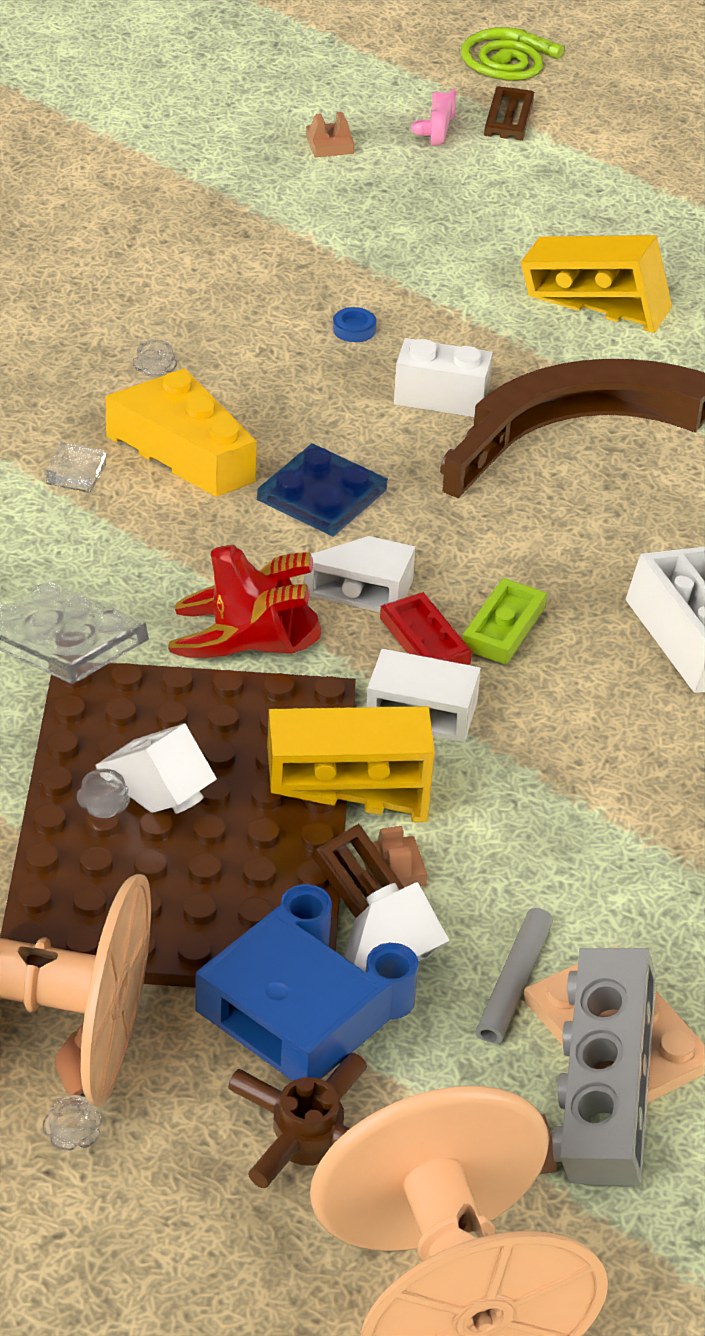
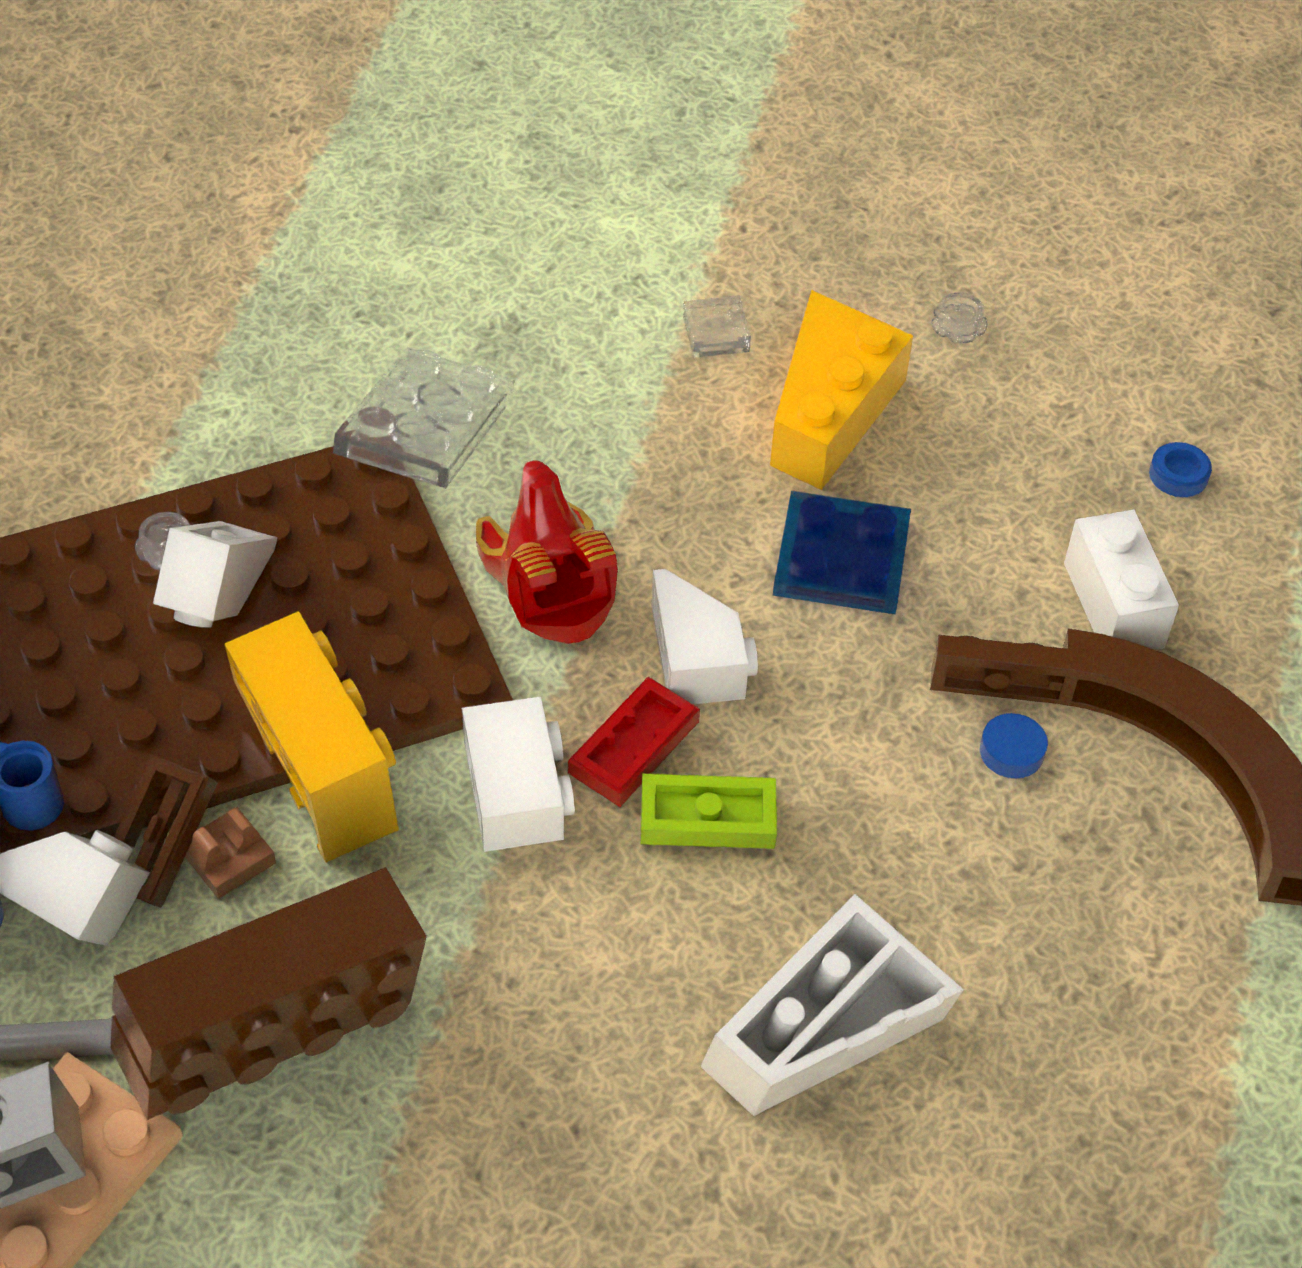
camera: 65 degrees right, 10 degrees up
(529, 478) = (1013, 745): none -> blue tile
(566, 843) = (265, 993): none -> reddish brown piece

